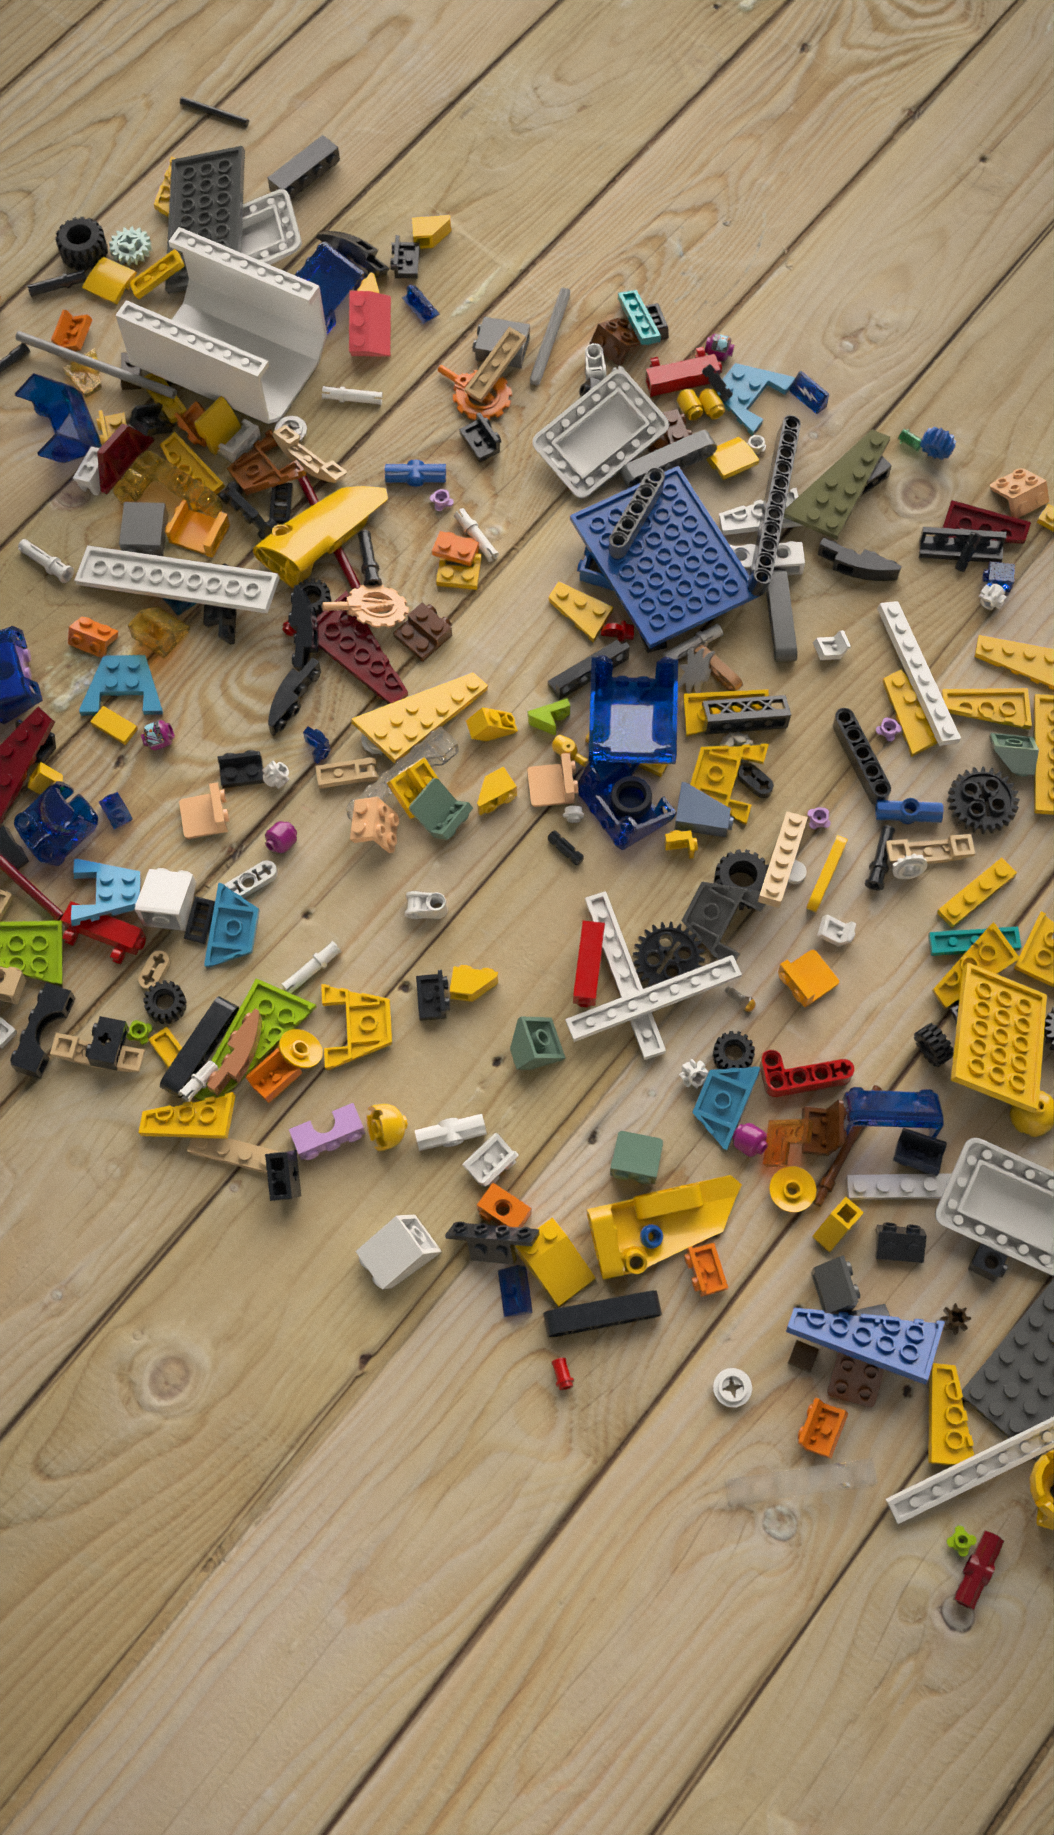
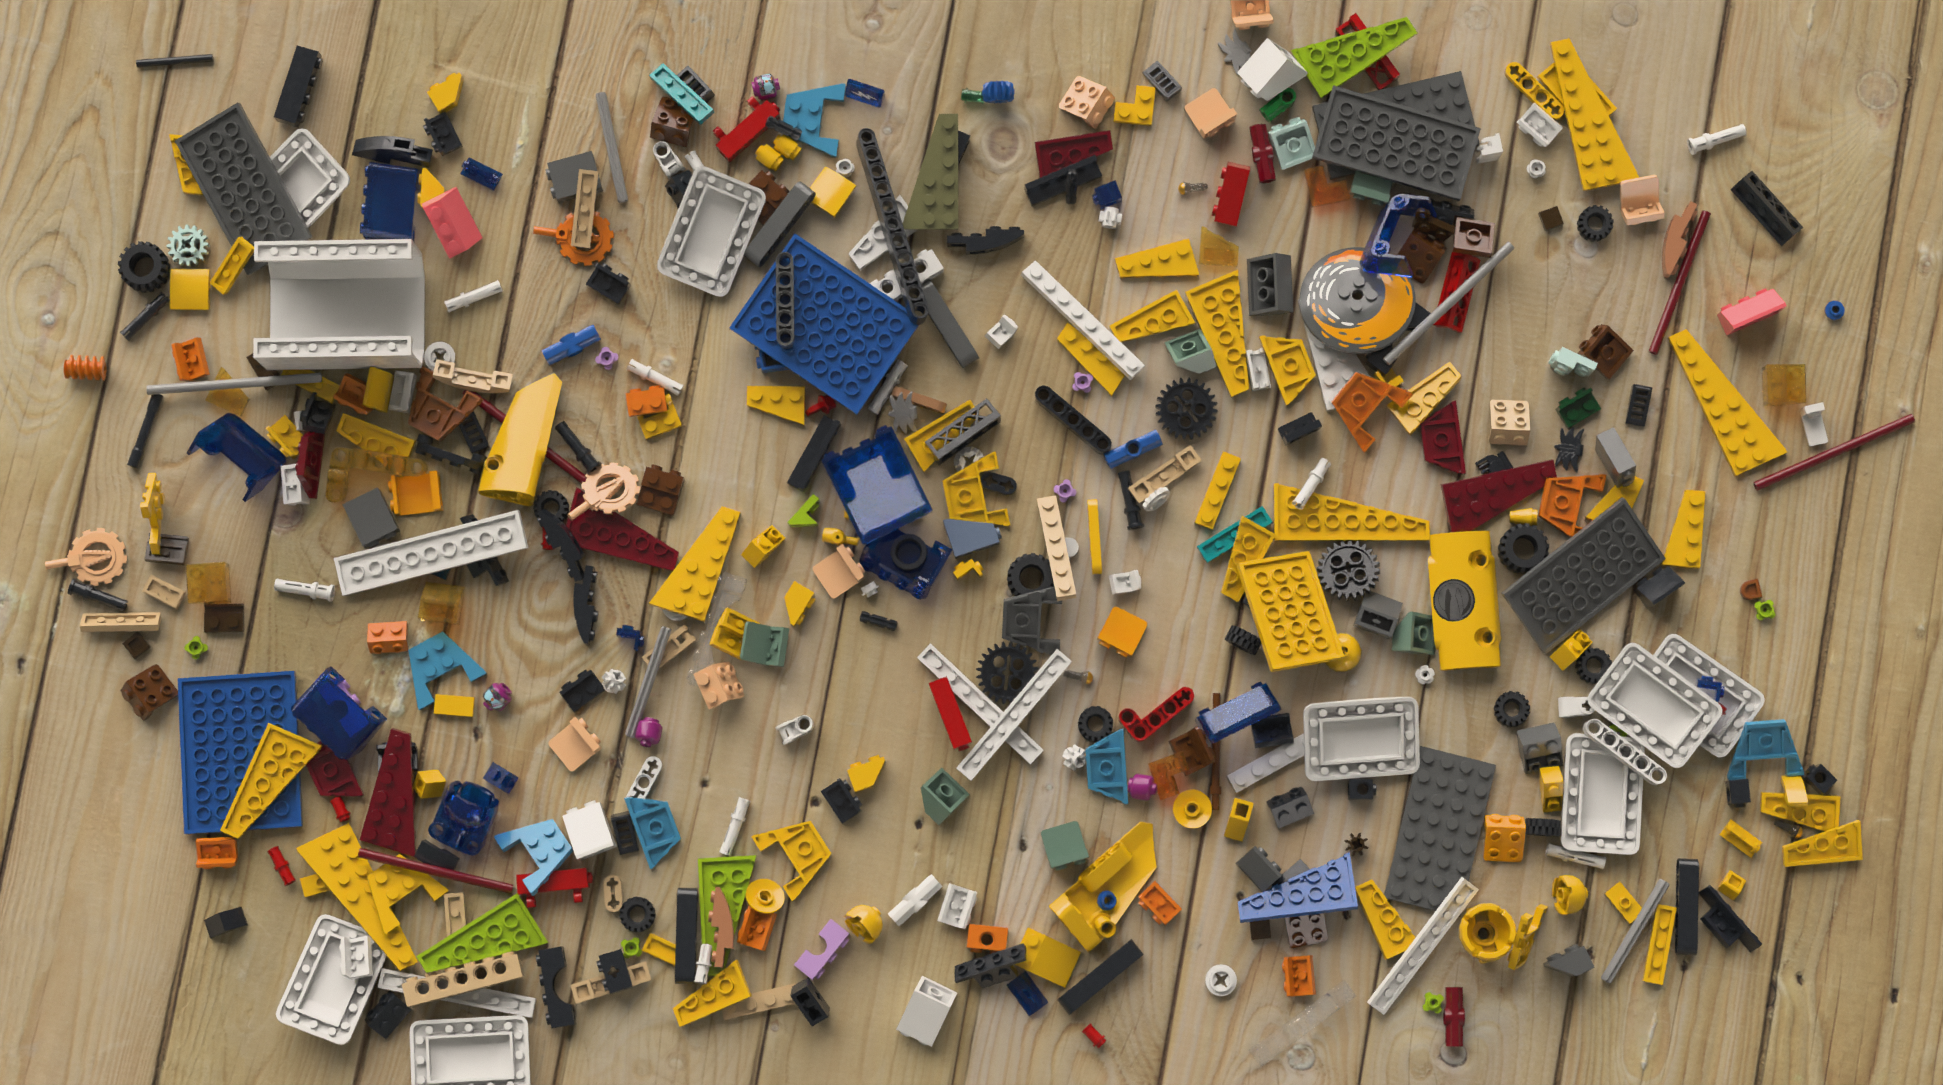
camera: 30 degrees left, 15 degrees up
(310, 787) = (648, 681): none -> light grey axle

